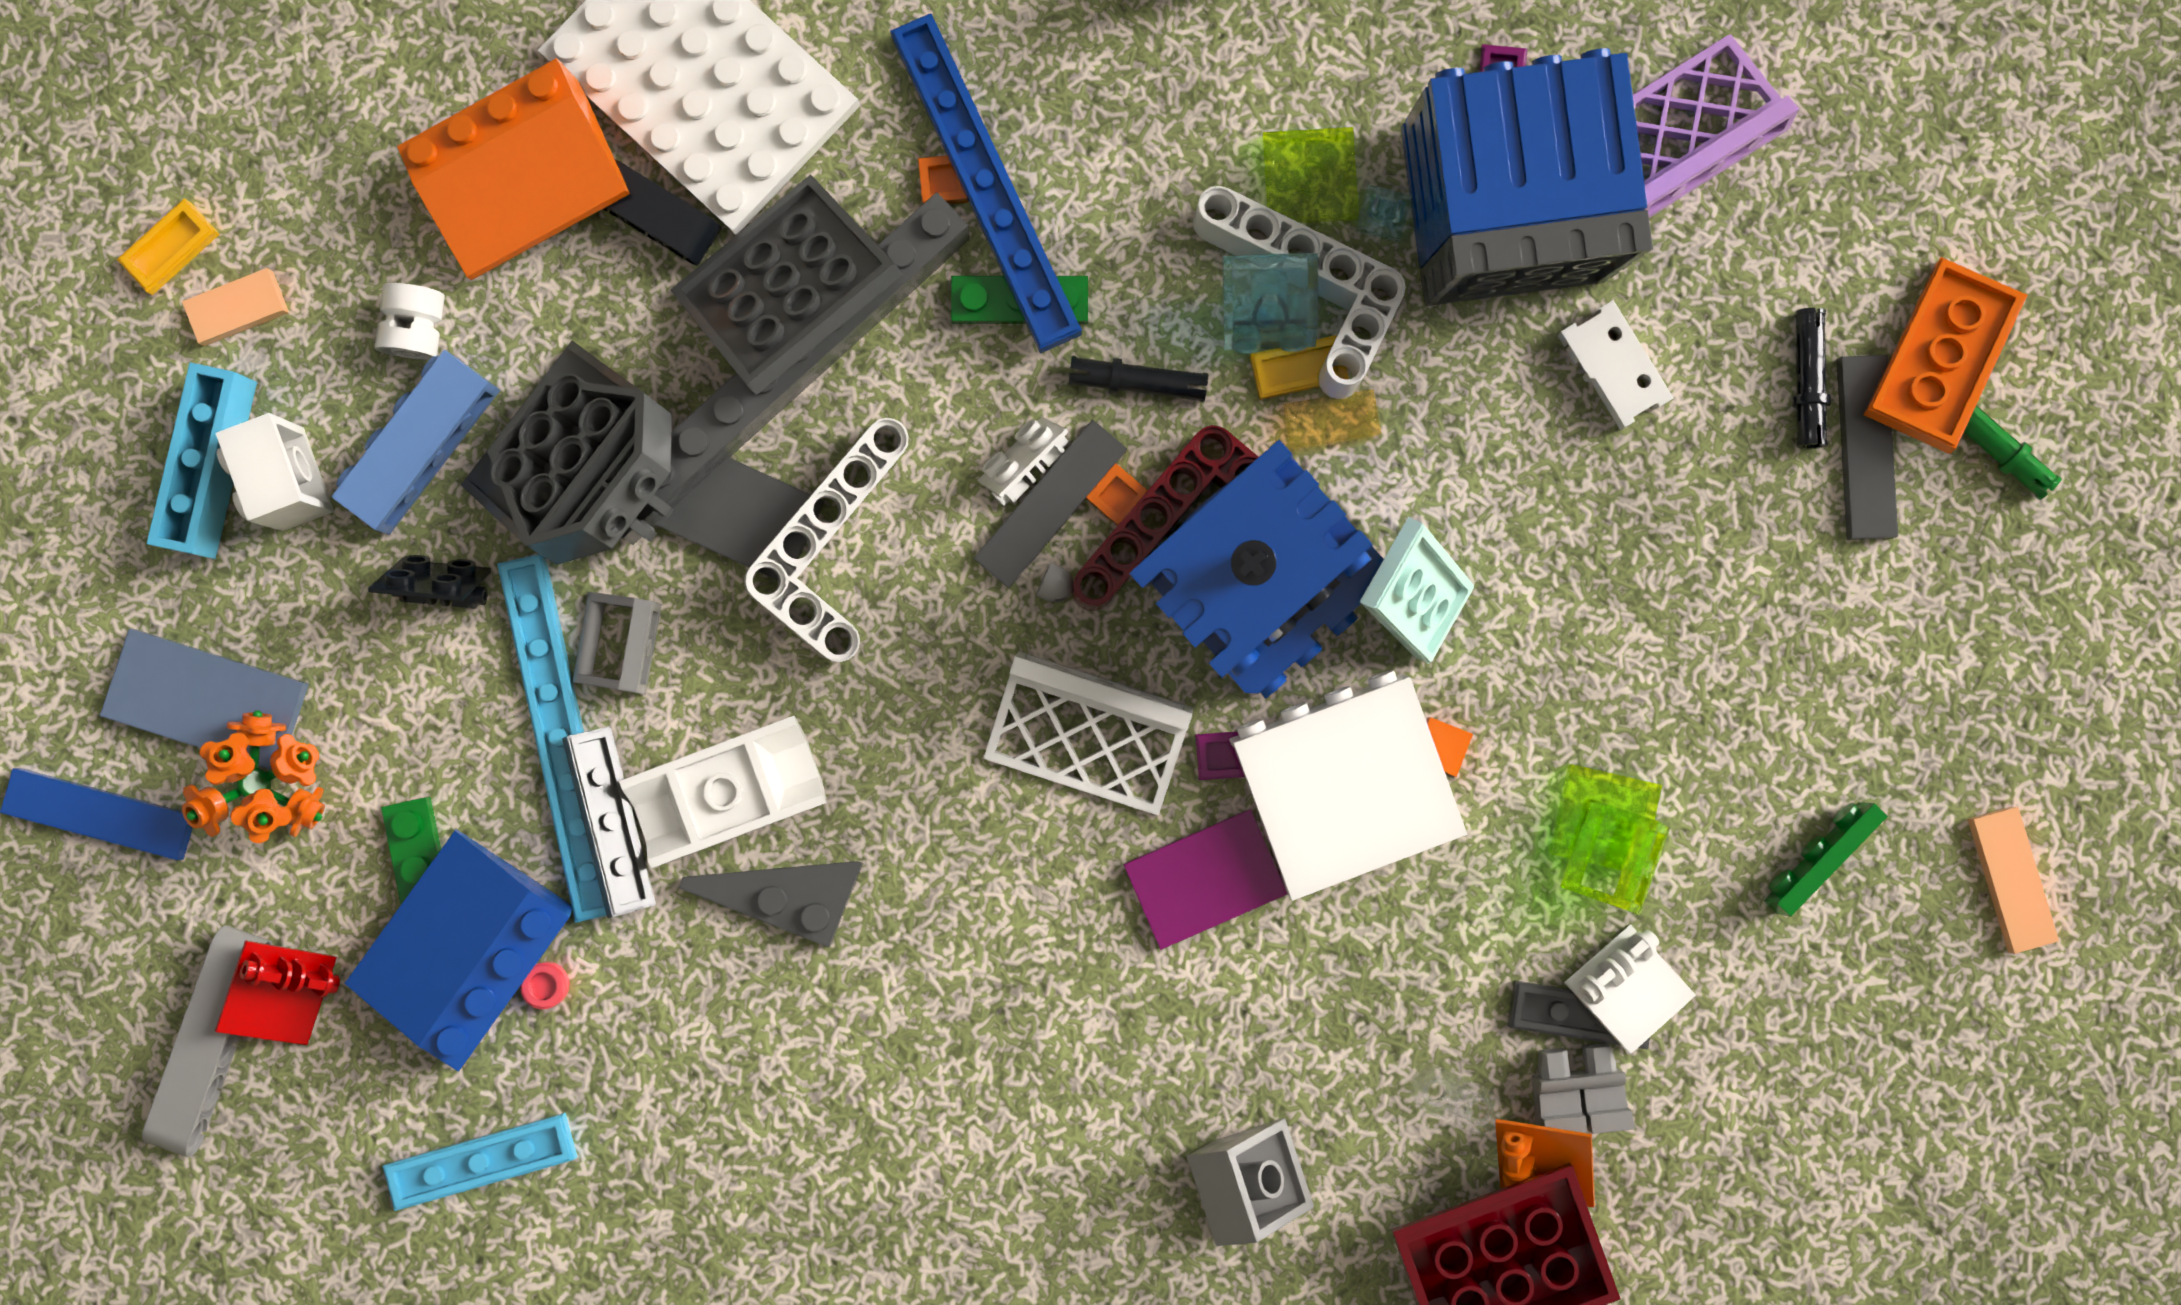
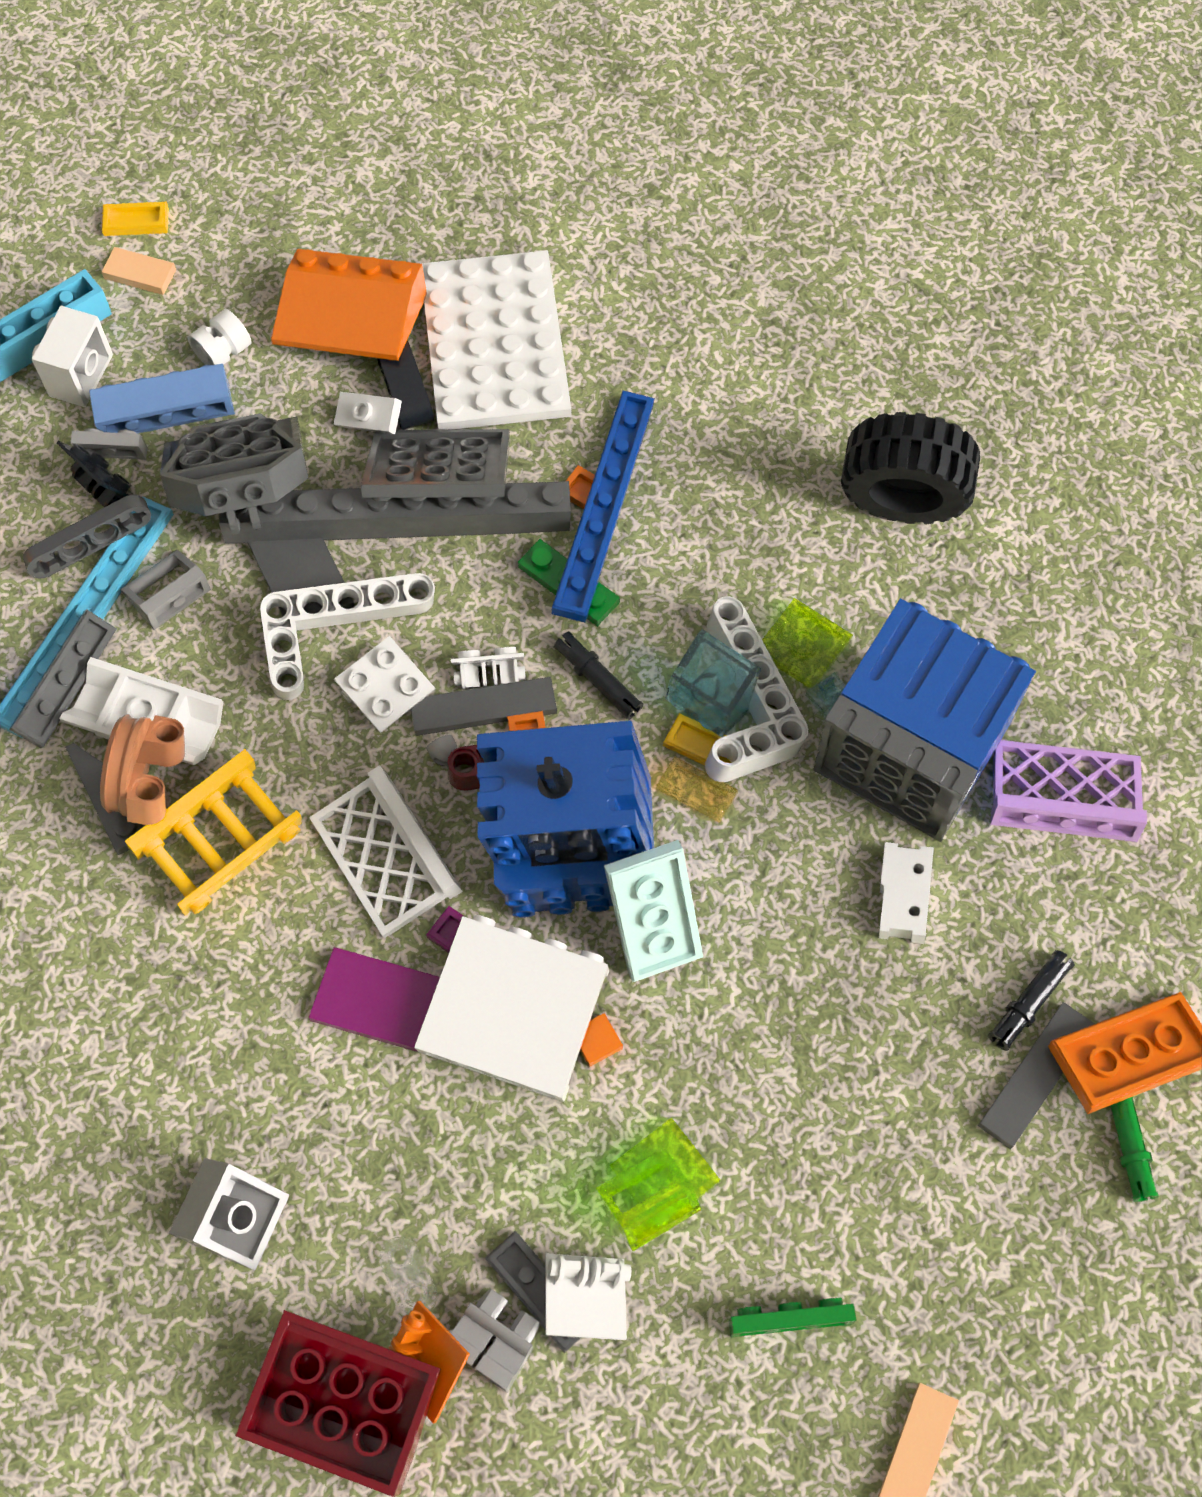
camera: 35 degrees right, 20 degrees down
(422, 524) = (120, 445): none -> light grey plate
(488, 657) = (89, 540): none -> dark grey beam
(648, 279) = (367, 412): none -> white plate
(764, 841) = (126, 764): none -> nougat piece
(870, 870) = (209, 796): none -> yellow fence
(938, 565) = (384, 684): none -> white hinge

